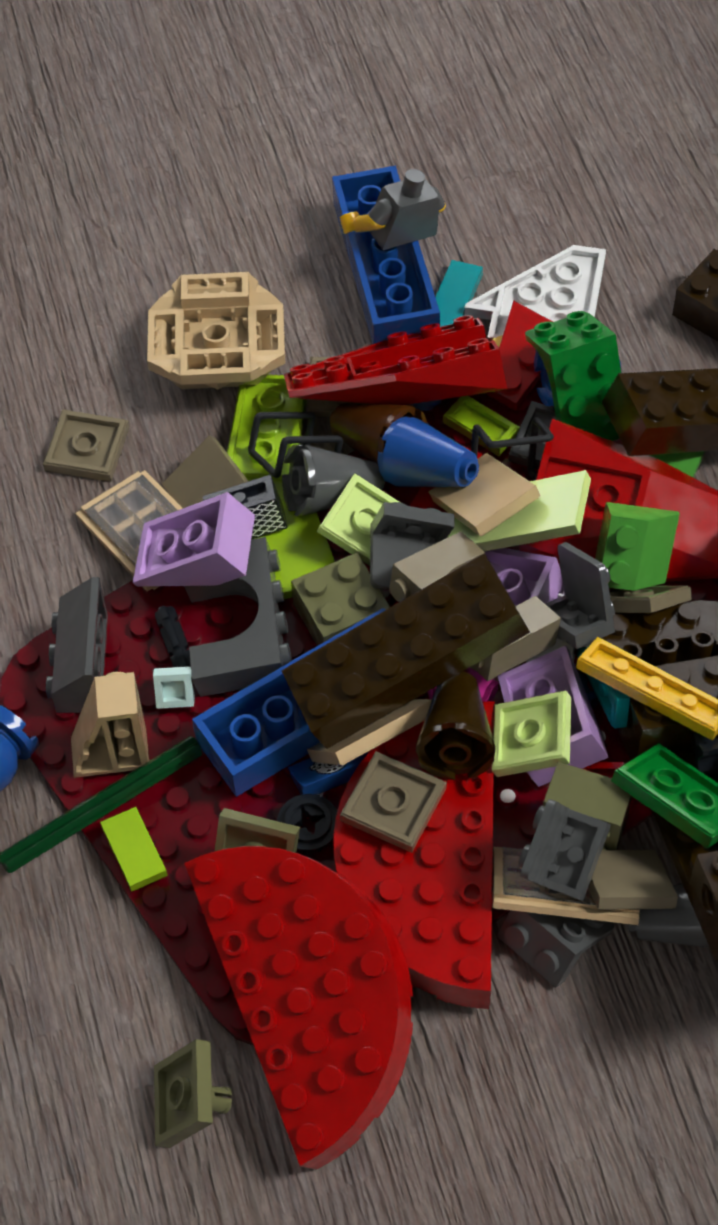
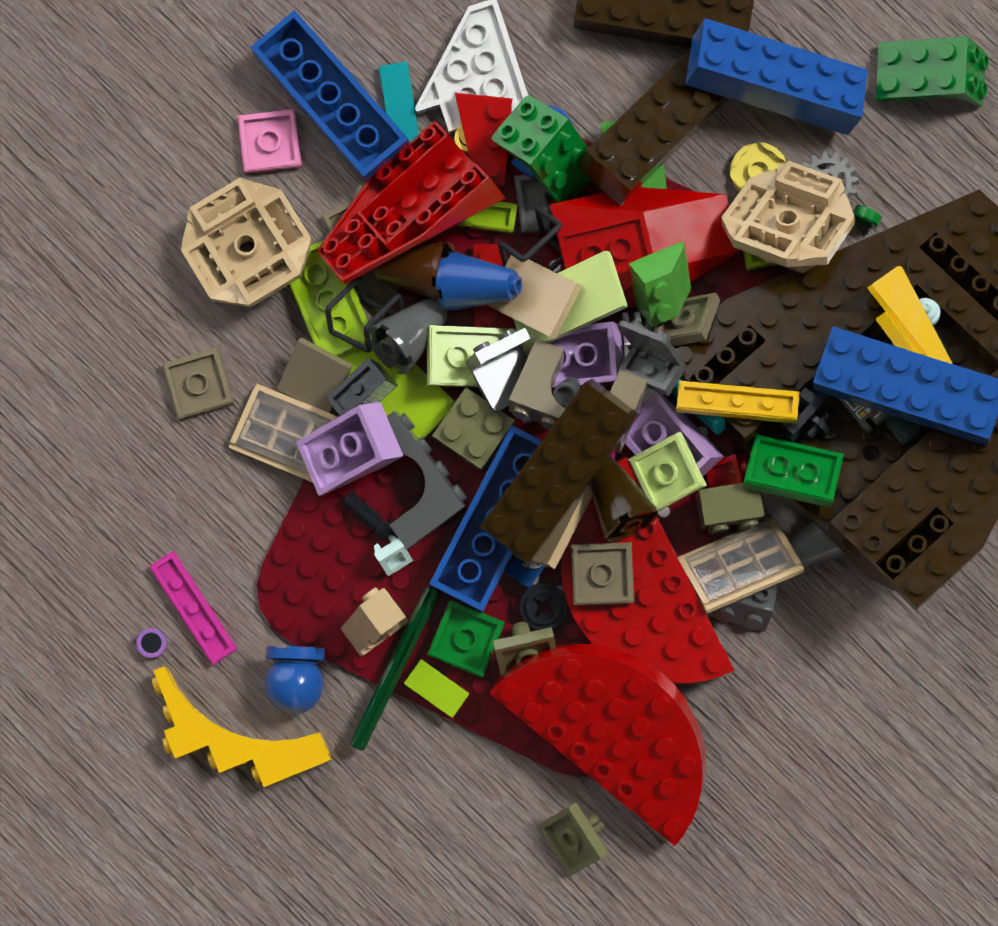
camera: 30 degrees left, 25 degrees up
(79, 646) = (309, 566): dark grey slope -> none
(192, 809) = (465, 638): none -> green plate
(303, 276) = (269, 141): none -> bright pink tile
(401, 214) = (333, 69): dark grey torso -> none
(563, 849) = (738, 554): dark grey bracket -> none
(631, 881) = (780, 542): dark tan tile -> none

